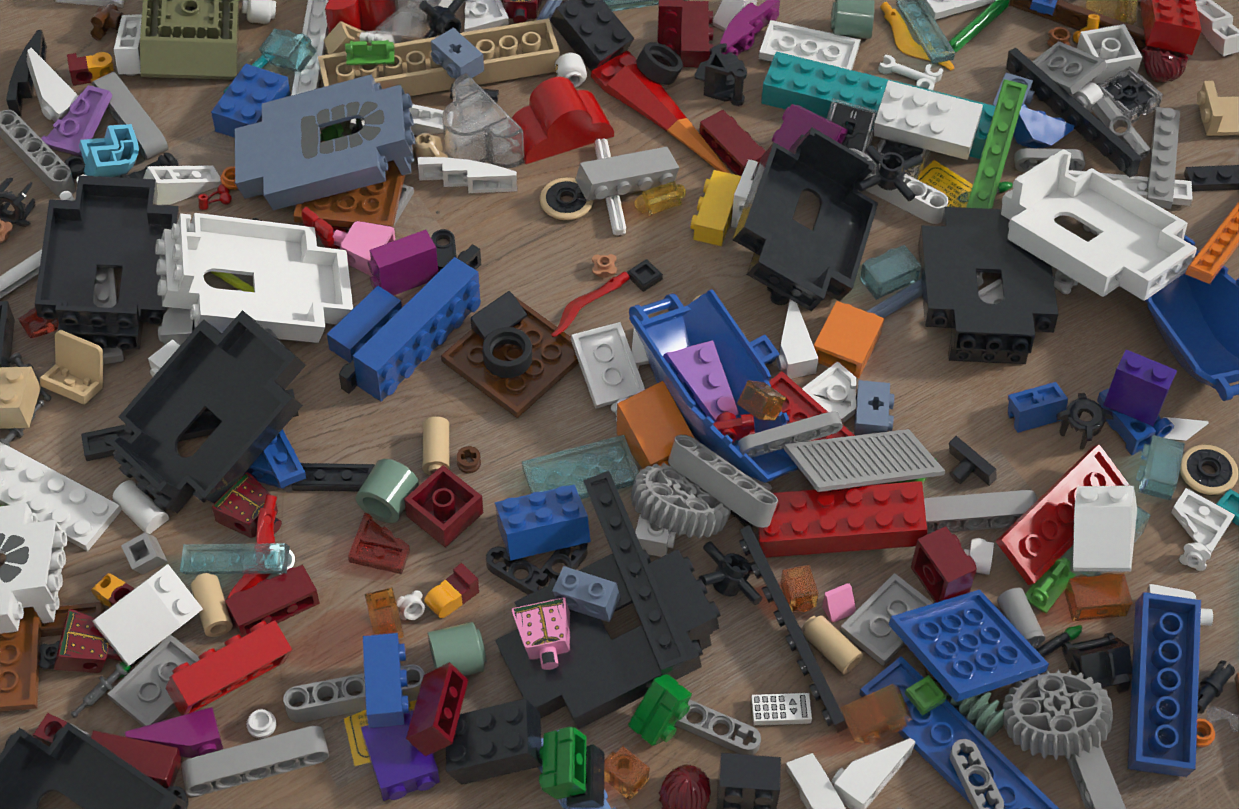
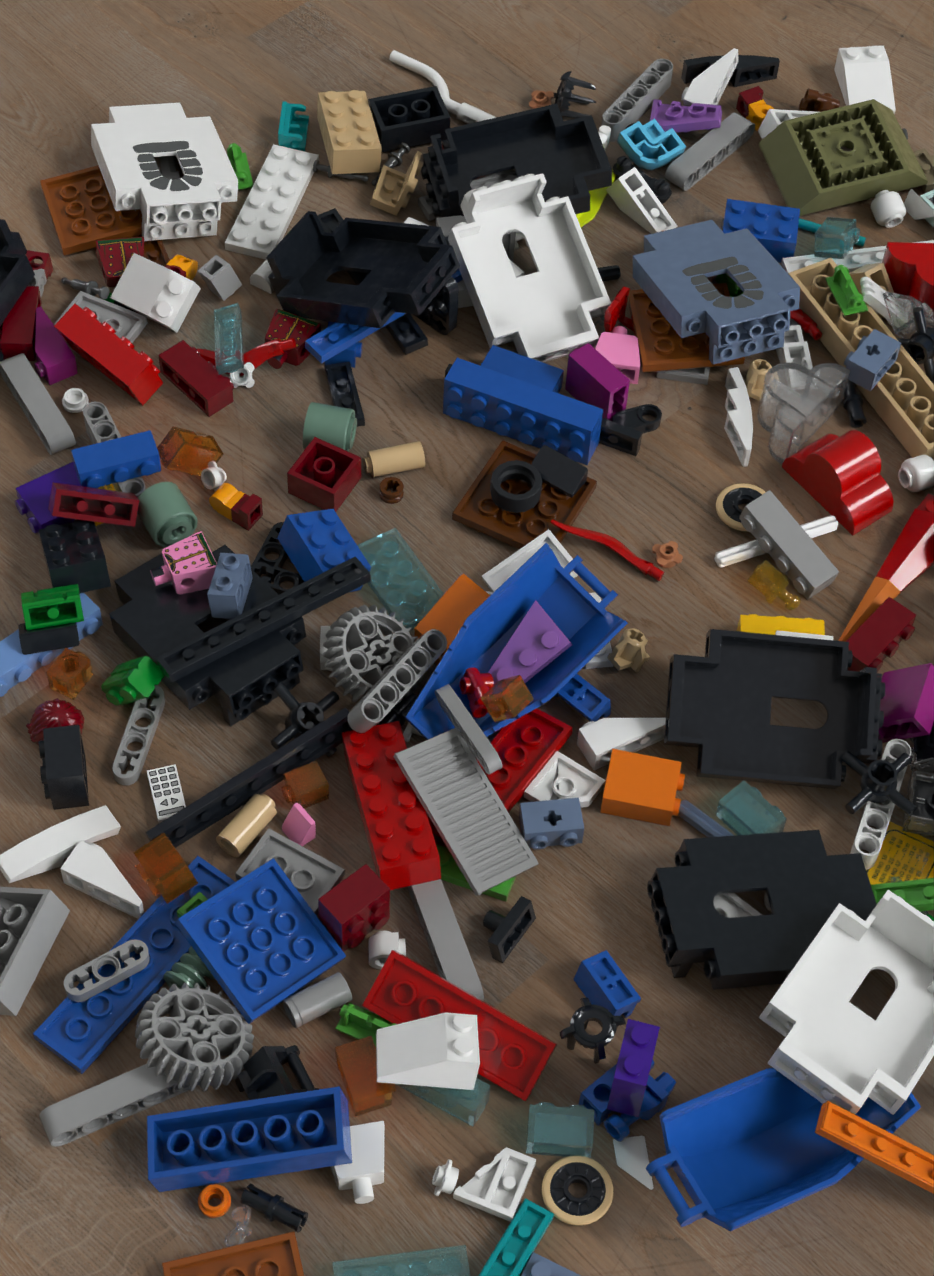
camera: 75 degrees right, 0 degrees up
(215, 613) = (192, 332): tan brick -> none
(225, 197) = (629, 231): red piece -> none
(378, 547) = (273, 441): clear red wing -> none
(645, 275) = (669, 593): black tile -> none
(1069, 634) = (285, 1029): black piece -> none

